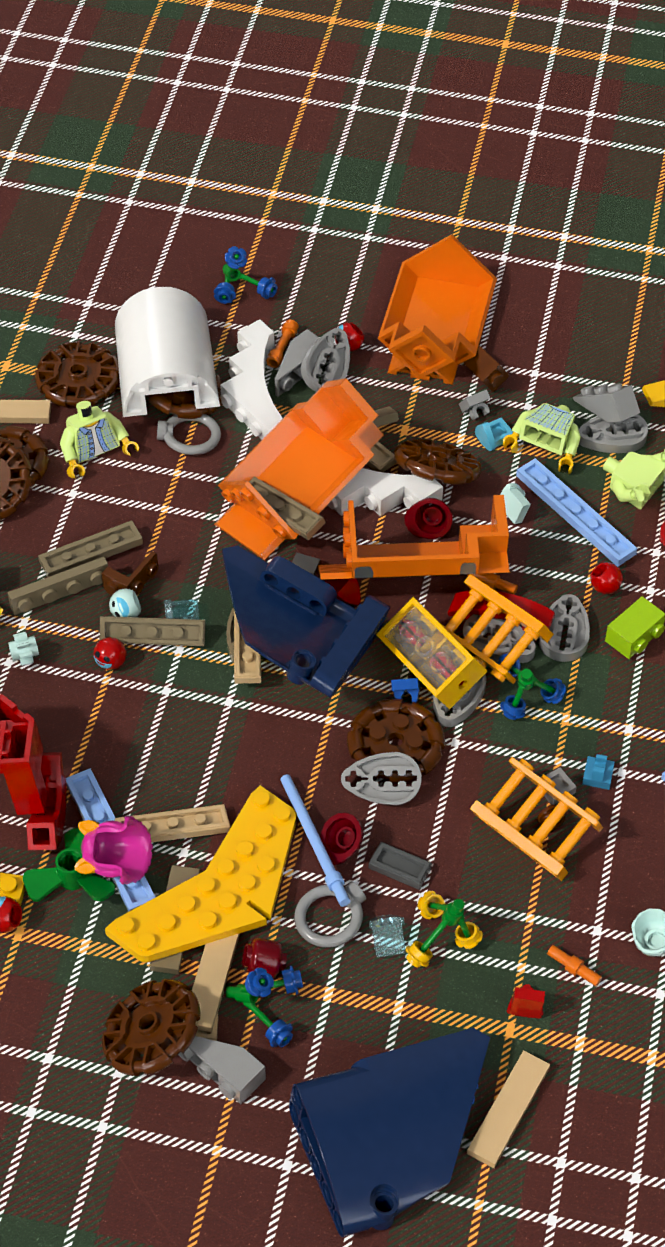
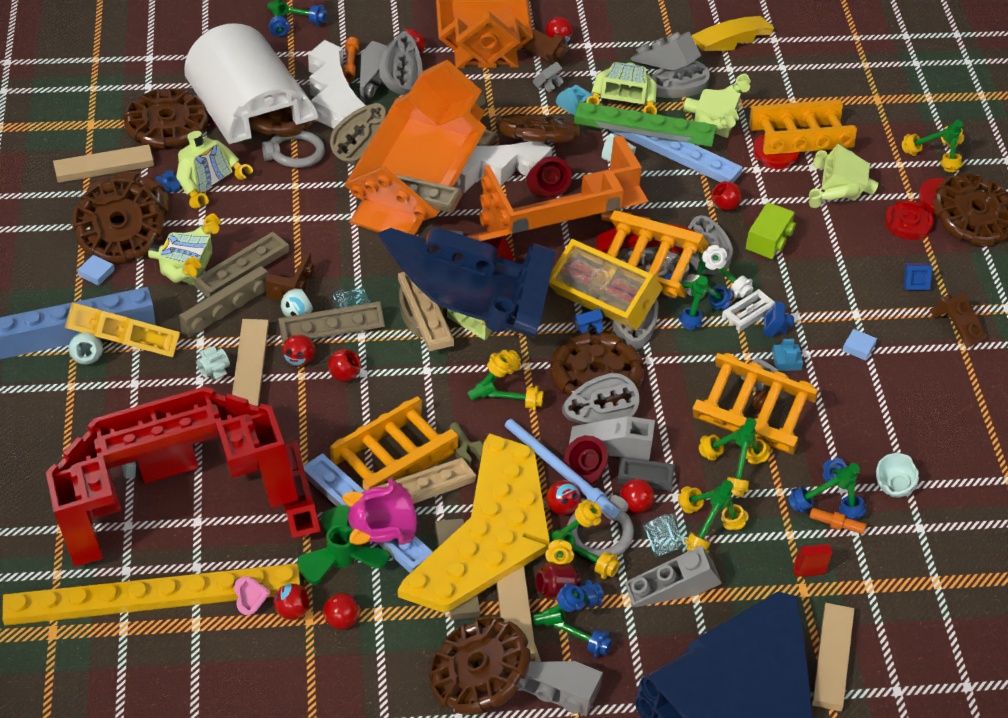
camera: 20 degrees left, 5 degrees down
(41, 526) = (186, 254): none -> torso
(47, 935) = (341, 611): none -> red piece
(53, 444) = (169, 181): none -> blue plant
(56, 665) = (251, 360): none -> tan tile
(146, 680) = (344, 365): none -> red piece
(181, 795) = (418, 458): none -> light orange fence
(233, 790) = (465, 445): none -> olive bar
(246, 423) = (349, 127): none -> dark tan piece
(272, 929) = (563, 541): none -> yellow plant
(290, 718) = (499, 365): none -> yellow plant
(304, 872) = (563, 497): none -> red piece
(379, 887) = (638, 495): none -> red piece
(383, 986) = (676, 579): none -> light grey slope
(385, 821) = (622, 436): none -> light grey slope
(505, 855) = (751, 448): none -> plant
(507, 352) = (559, 26): none -> red piece
(552, 479) = (645, 124): none -> bright green plate
(554, 651) = (715, 258): none -> white plant
(583, 714) = (752, 313): none -> white tile
(592, 915) = (838, 474): none -> plant
(602, 730) = (776, 320): none -> blue tile

